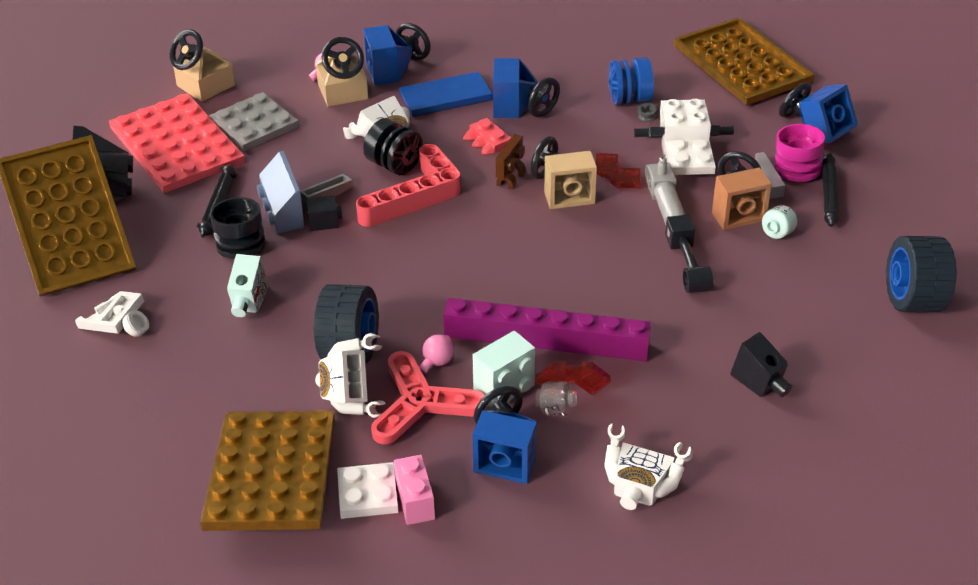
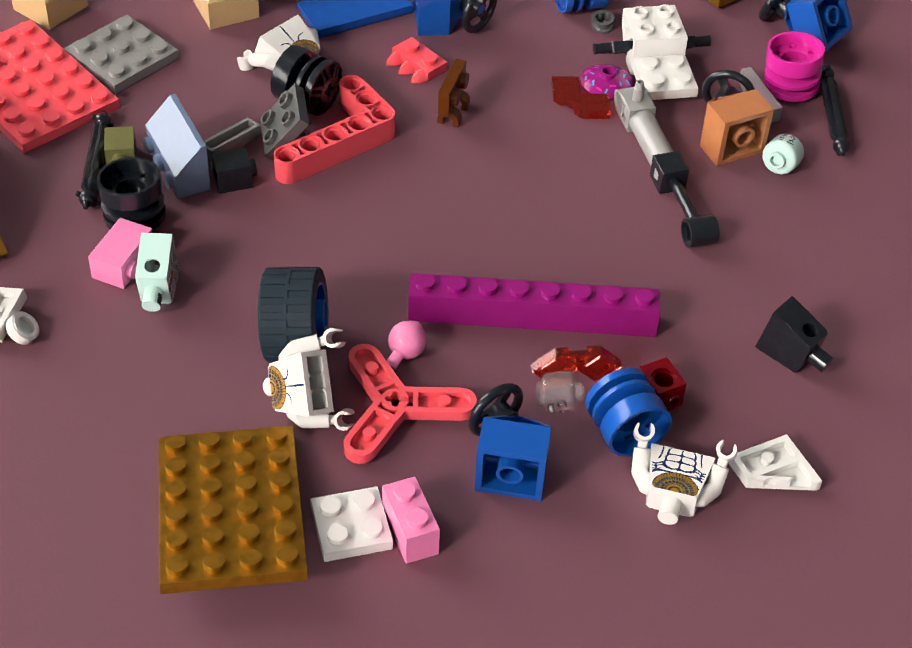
camera: 10 degrees left, 5 degrees up
(216, 271) = (117, 253): none -> bright pink brick
(237, 186) = (119, 143): none -> olive brick
(371, 175) = (285, 120): none -> dark grey plate
(504, 363) = (494, 356): light aqua brick -> none
(568, 176) = (527, 110): tan piece -> none
(607, 404) = (620, 403): none -> blue wheel
(640, 156) = (605, 79): none -> magenta dish
(641, 399) = (666, 382): none -> dark red brick
(727, 469) = (775, 466): none -> white wing

